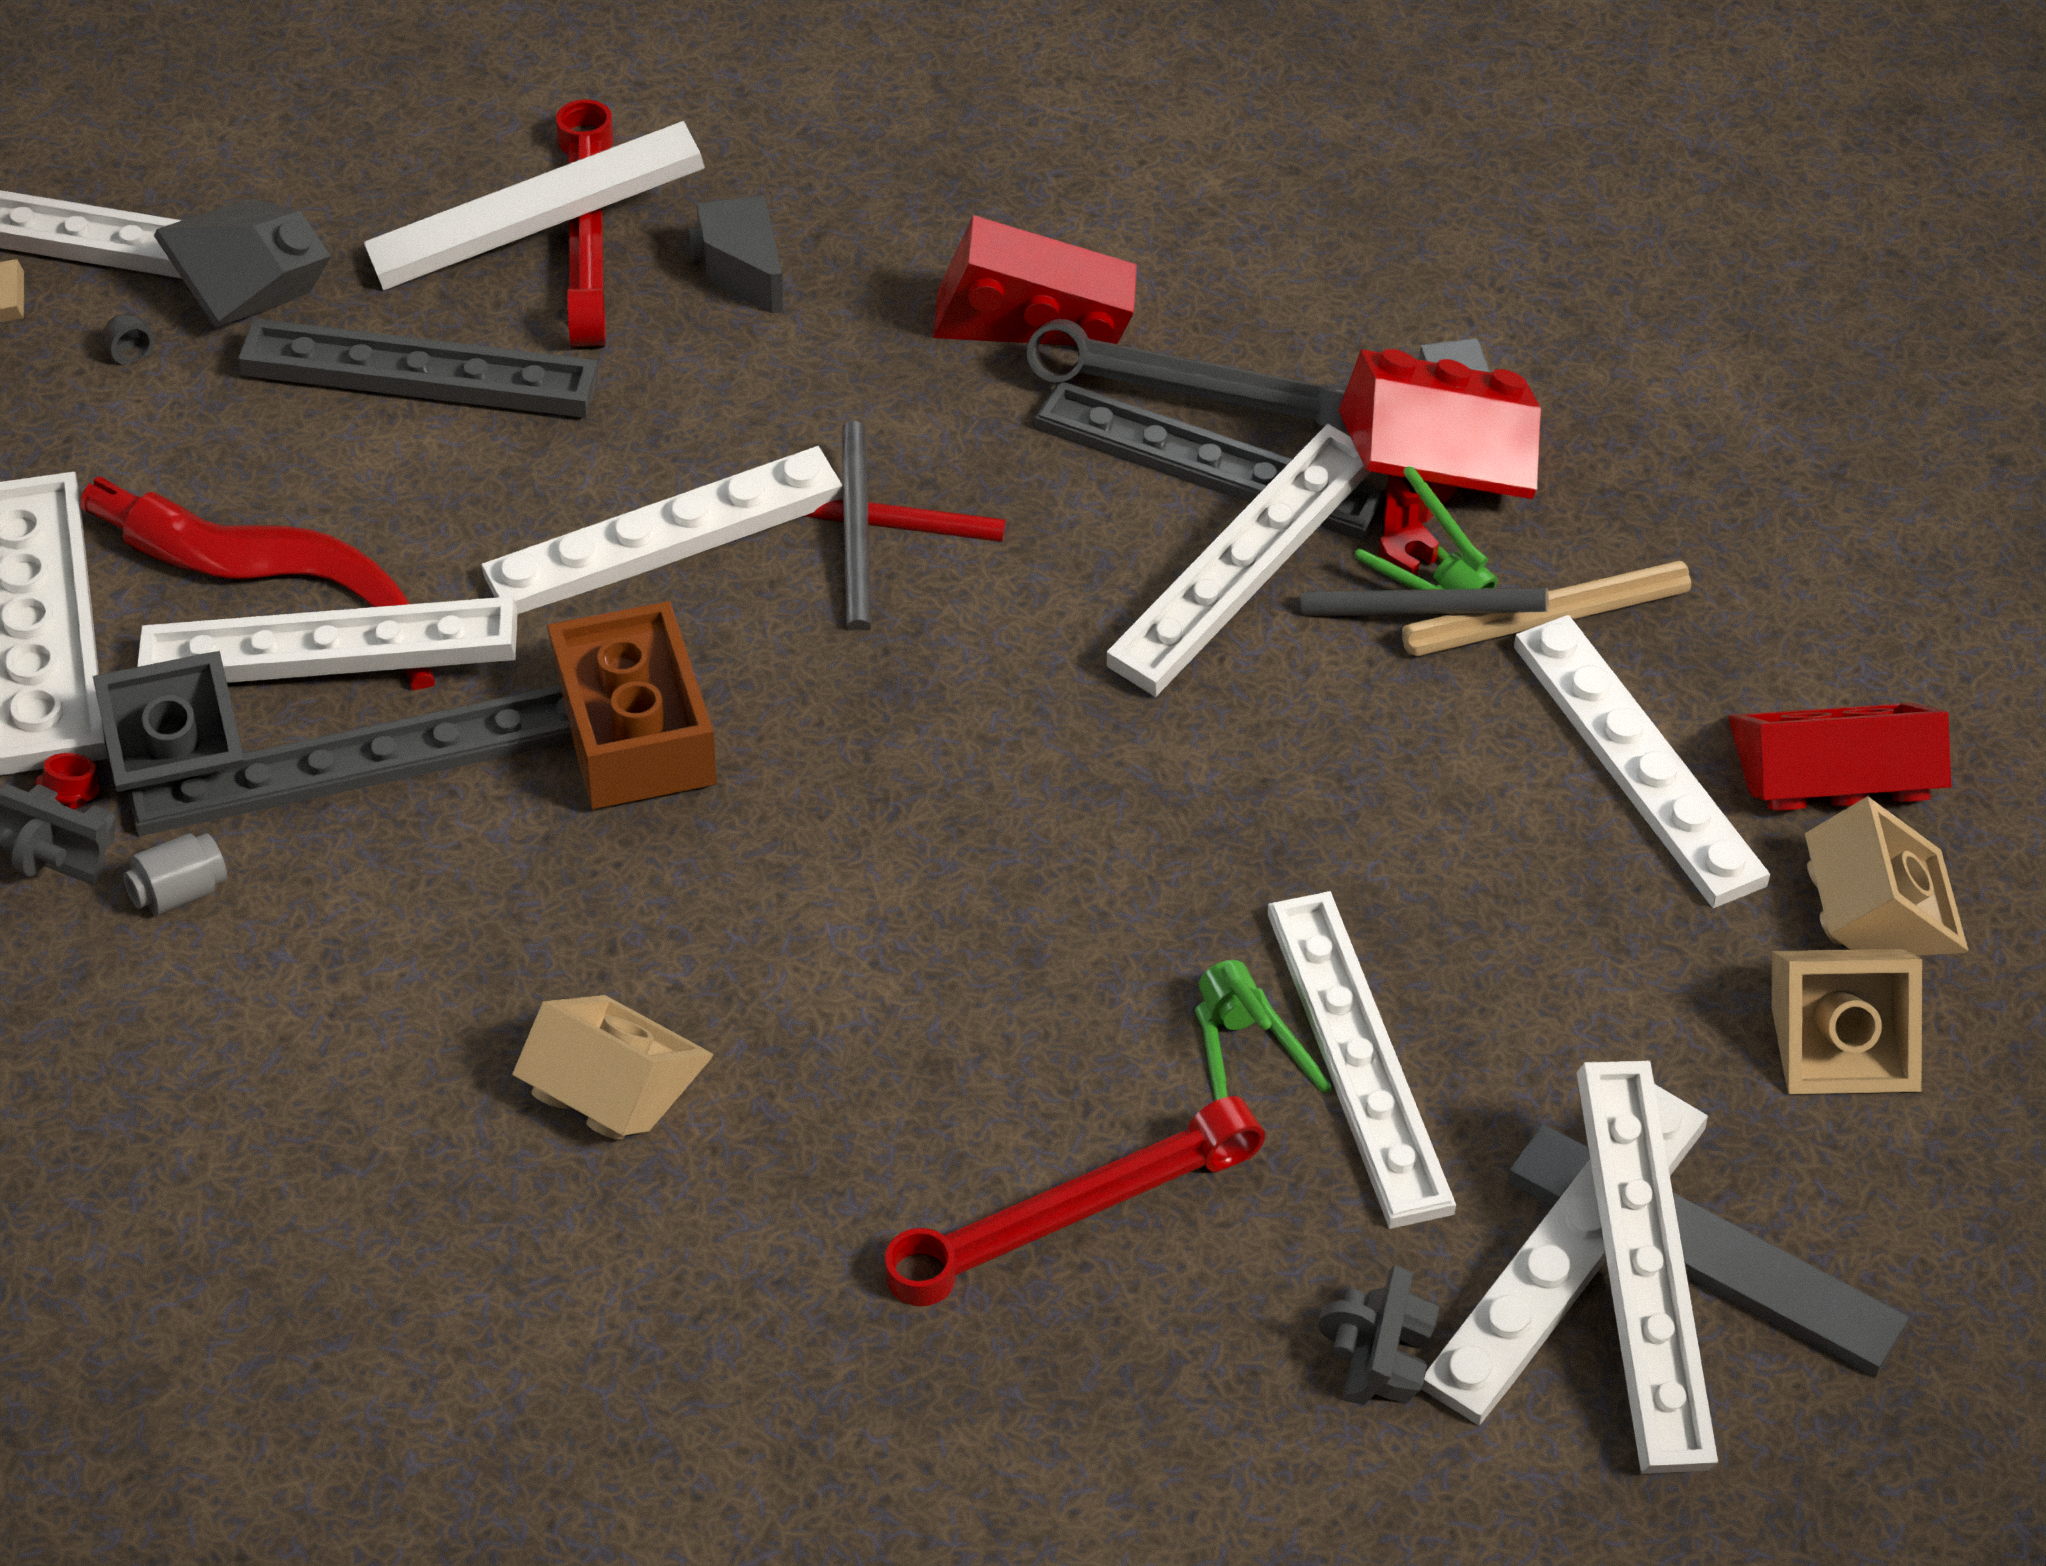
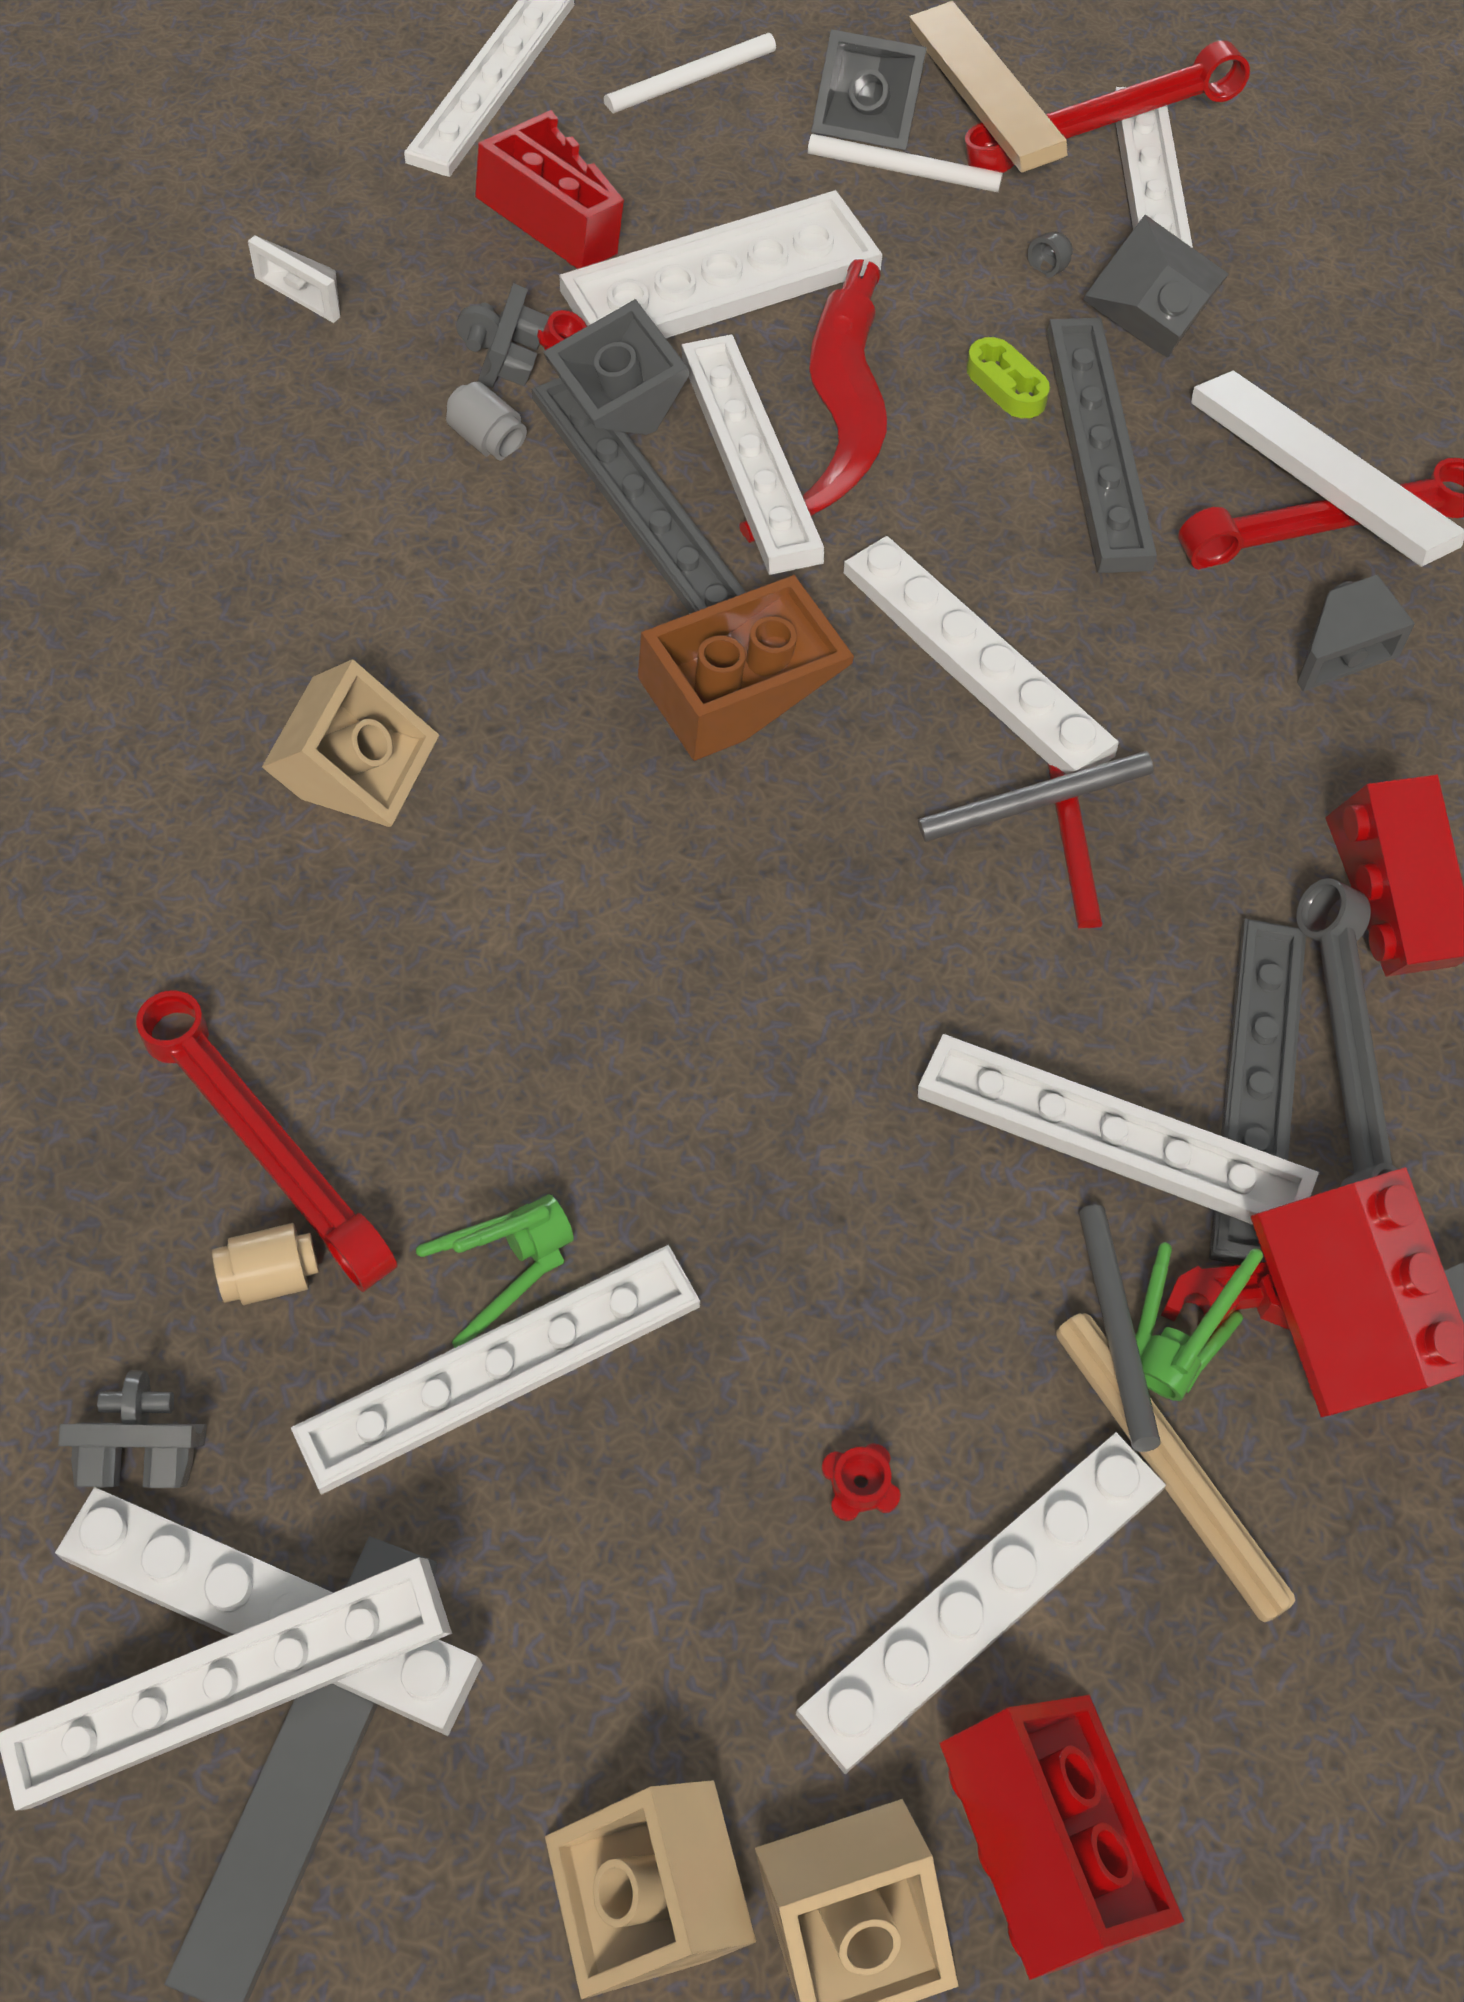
camera: 75 degrees right, 10 degrees up
(293, 419) = (1003, 380): none -> lime beam
(1221, 1213) = (265, 1264): none -> tan brick
(1525, 800) = (869, 1462): none -> red plate

